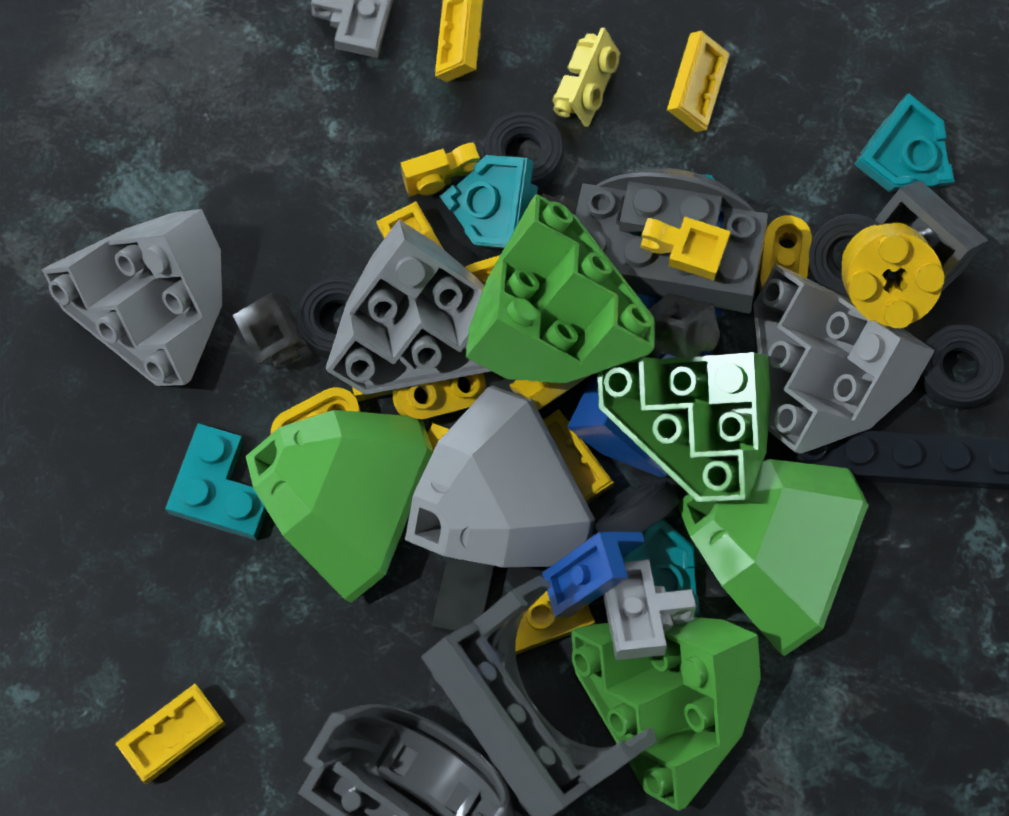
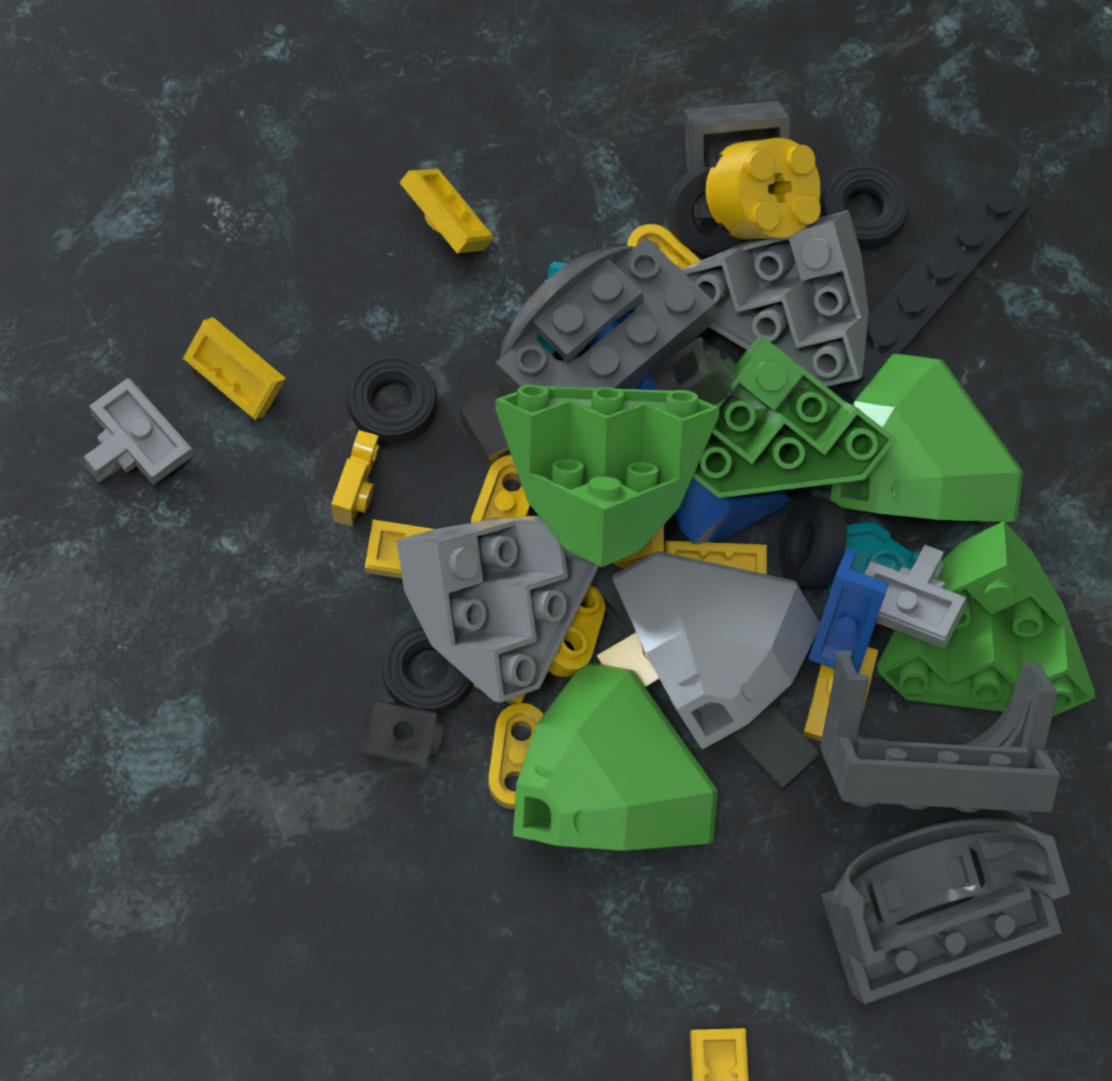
camera: 65 degrees left, 0 degrees up
(147, 293) = (272, 818): light grey brick -> none
(205, 489) = (507, 900): teal plate -> none
(492, 199) = (426, 456): teal plate -> none
(594, 62) = (377, 309): light yellow hinge -> none
(693, 247) = (643, 311): yellow plate -> none
(908, 149) = (641, 100): teal plate -> none

